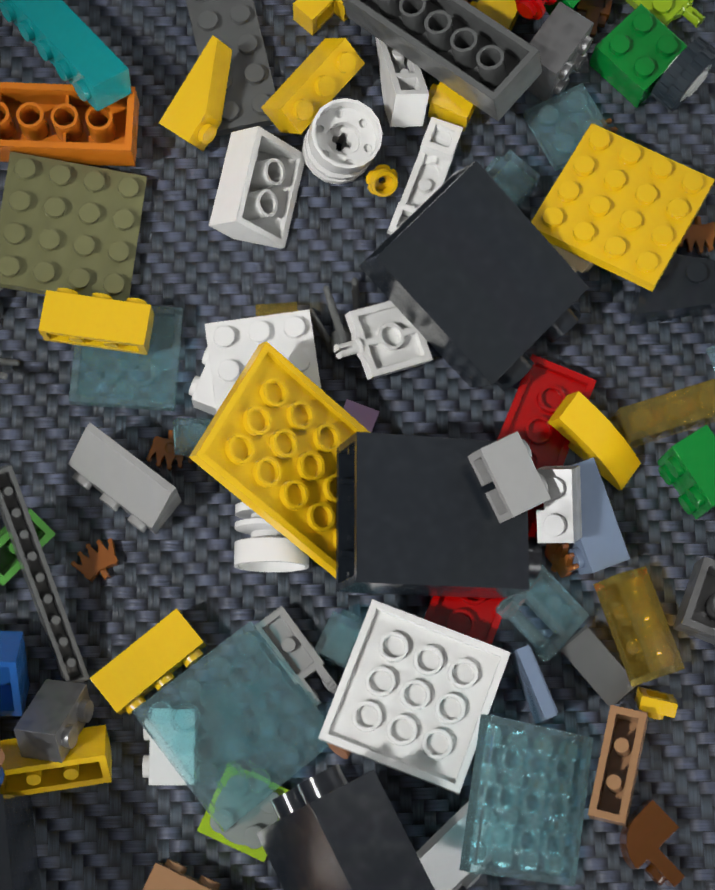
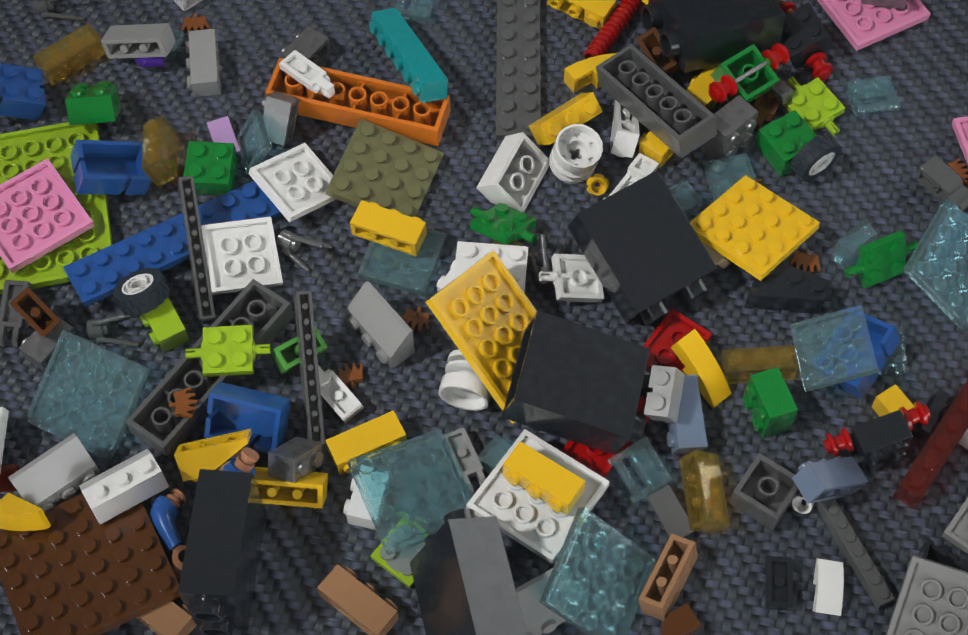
camera: 20 degrees right, 15 degrees down
(87, 597) = (338, 395): none -> white hinge
(187, 434) = (426, 315): clear light blue plate -> none
(201, 98) = (490, 112): yellow slope -> none
(262, 276) = (503, 224): none -> green plate
(419, 677) = (543, 478): none -> yellow brick
(513, 474) = (633, 354): light grey piece -> none
(533, 684) = (621, 507): sand blue tile -> none
(560, 559) = (660, 437): dark orange piece -> none
(656, 703) = (705, 546): yellow plate -> none

